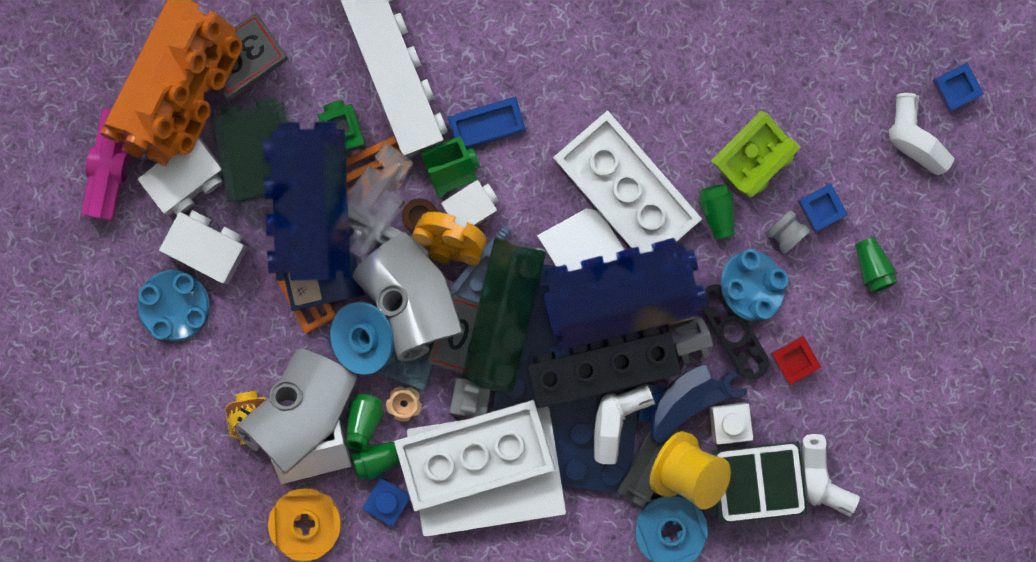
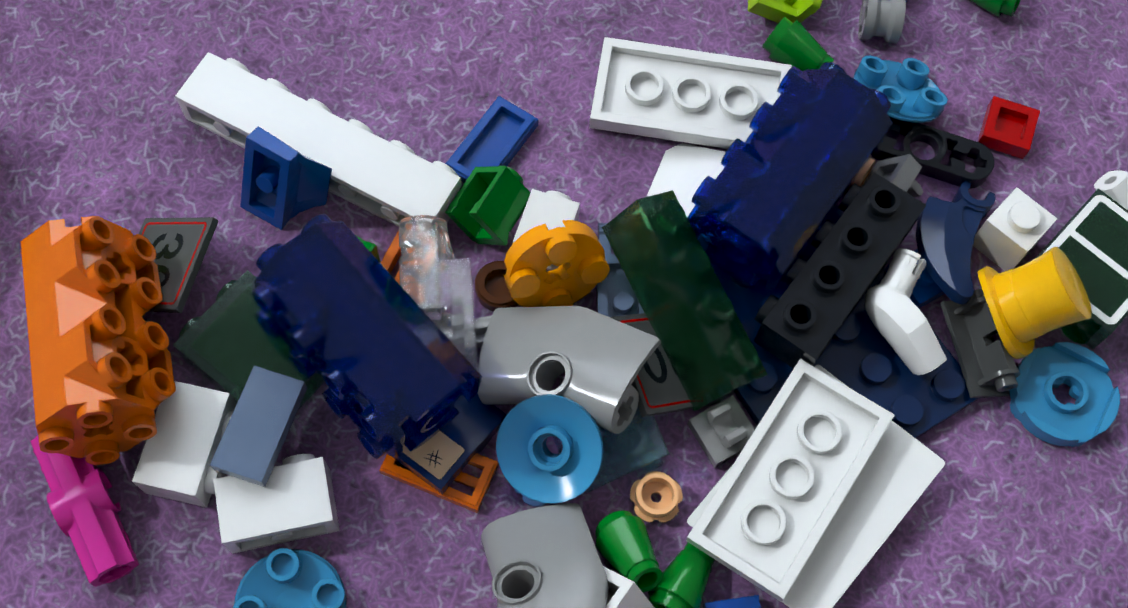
camera: 45 degrees left, 20 degrees down
(222, 203) = (259, 426): none -> sand blue tile
(340, 57) = (280, 179): none -> blue slope

